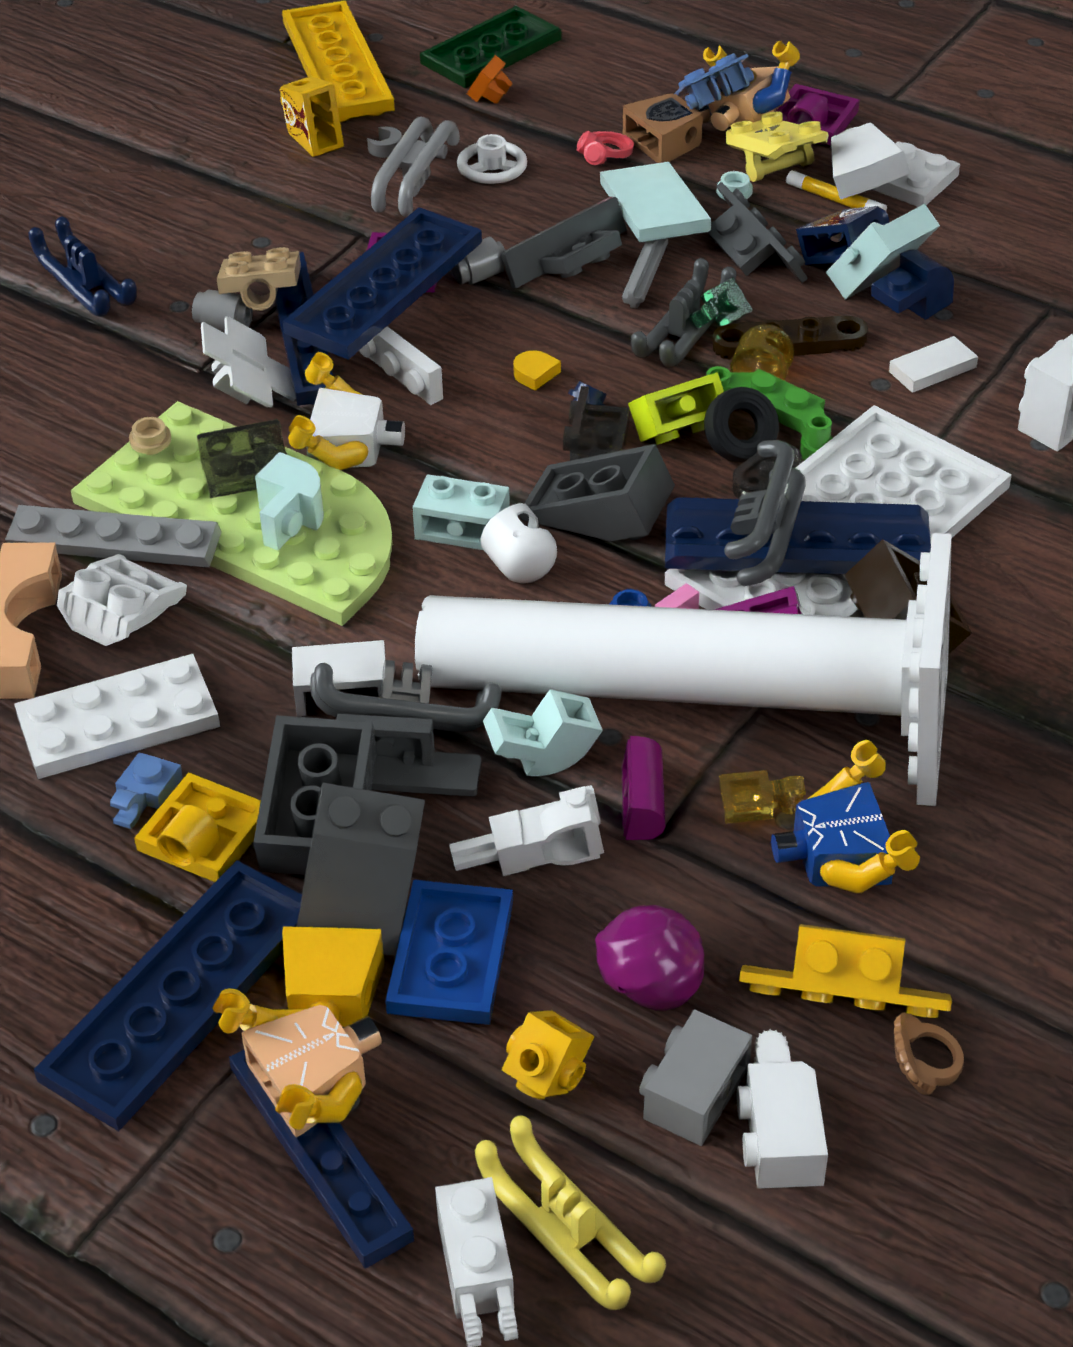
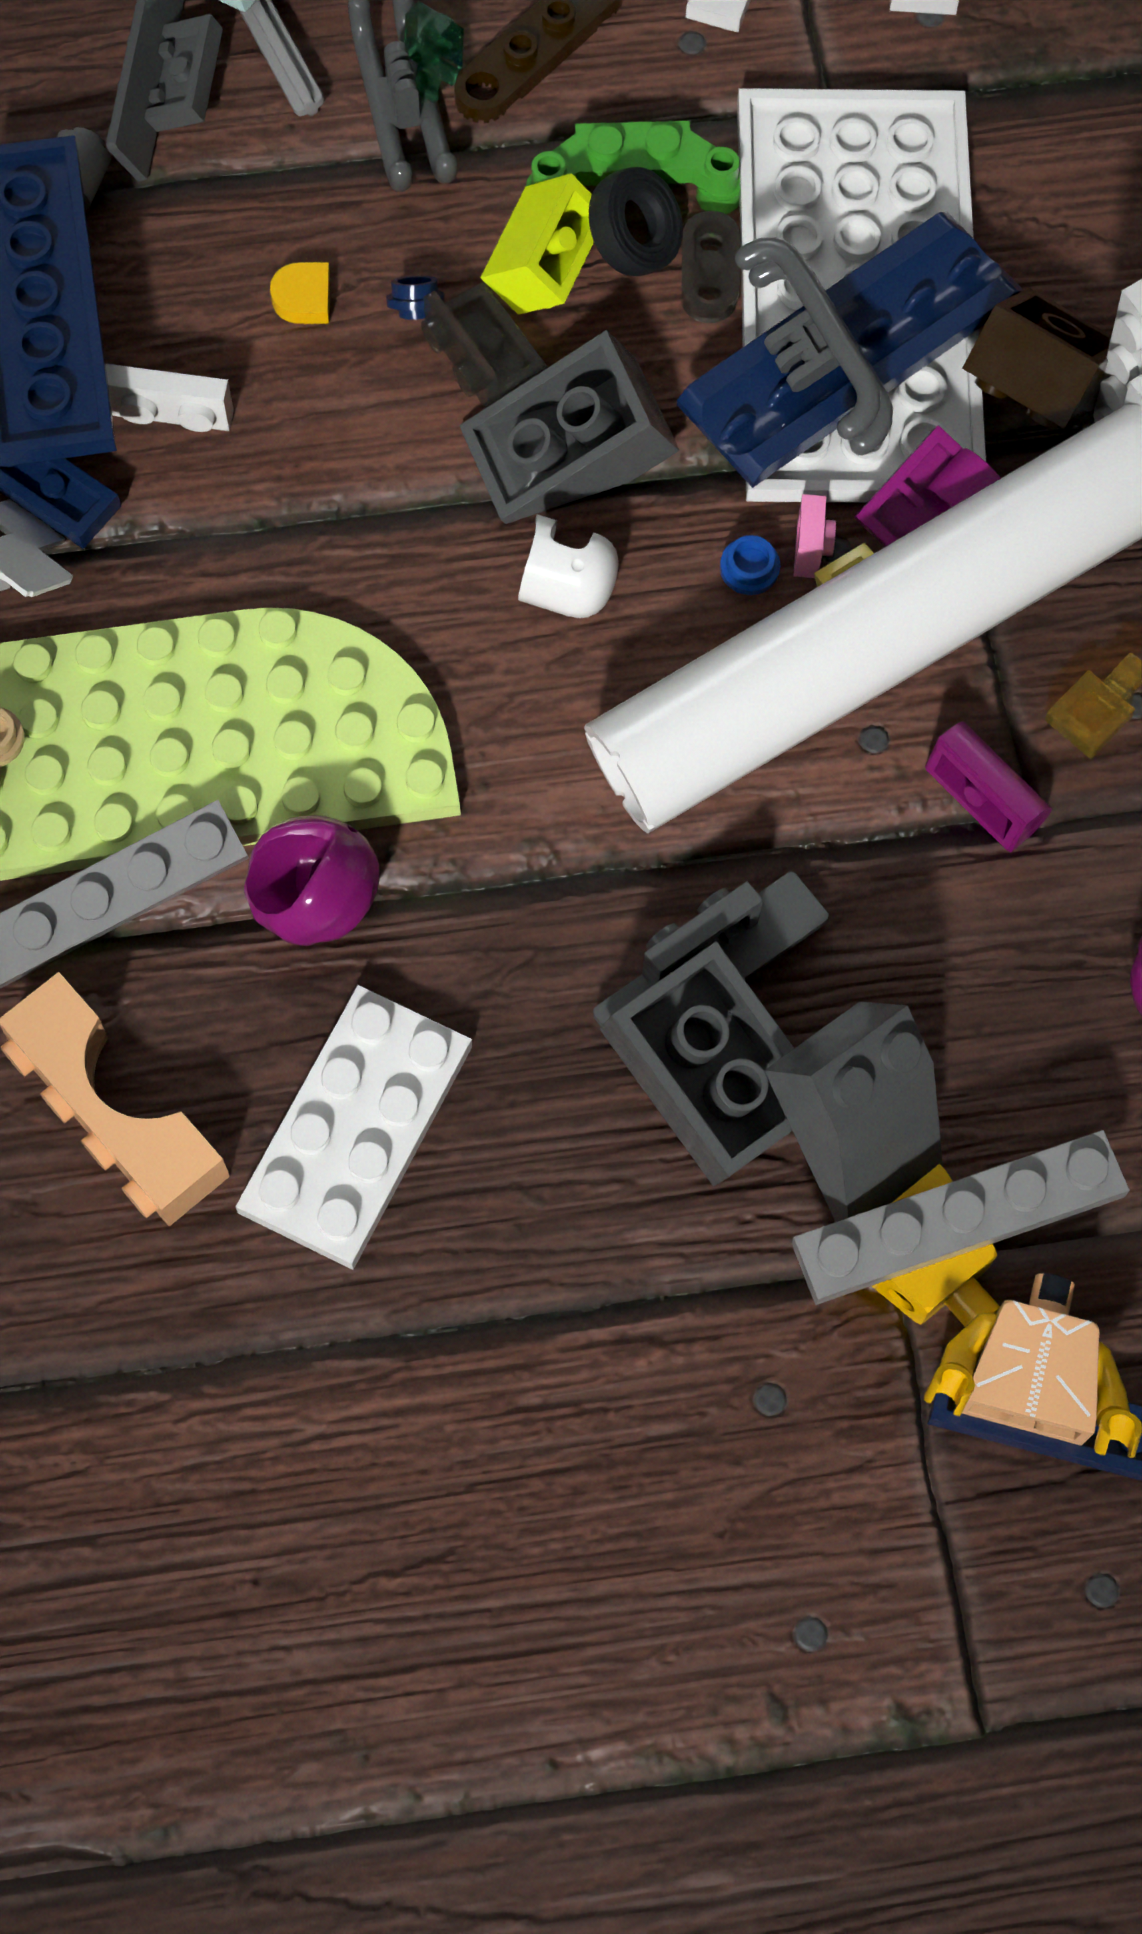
camera: 45 degrees left, 25 degrees up
(116, 599) = (197, 983): white slope -> none
(143, 784) = (487, 1184): medium blue plate -> none
(168, 996) = (795, 1399): dark blue plate -> none
(201, 827) = (611, 1186): yellow plate -> none
(221, 586) = (311, 879): none -> magenta piece
(237, 454) = (146, 687): clear smoke bracket -> none
(288, 499) = (267, 690): light aqua brick -> none
(344, 423) = (187, 539): torso -> none
(352, 665) = (553, 889): white panel -> none
(358, 957) = (959, 1217): none -> light grey plate
(402, 699) = (674, 872): dark grey piece -> none
(450, 952) = (995, 1099): blue plate -> none
(456, 510) = (449, 568): light aqua brick -> none
(548, 740) = (844, 795): light aqua brick -> none
(549, 833) = (951, 922): white piece -> none
(765, 349) = (553, 84): clear yellow helmet -> none

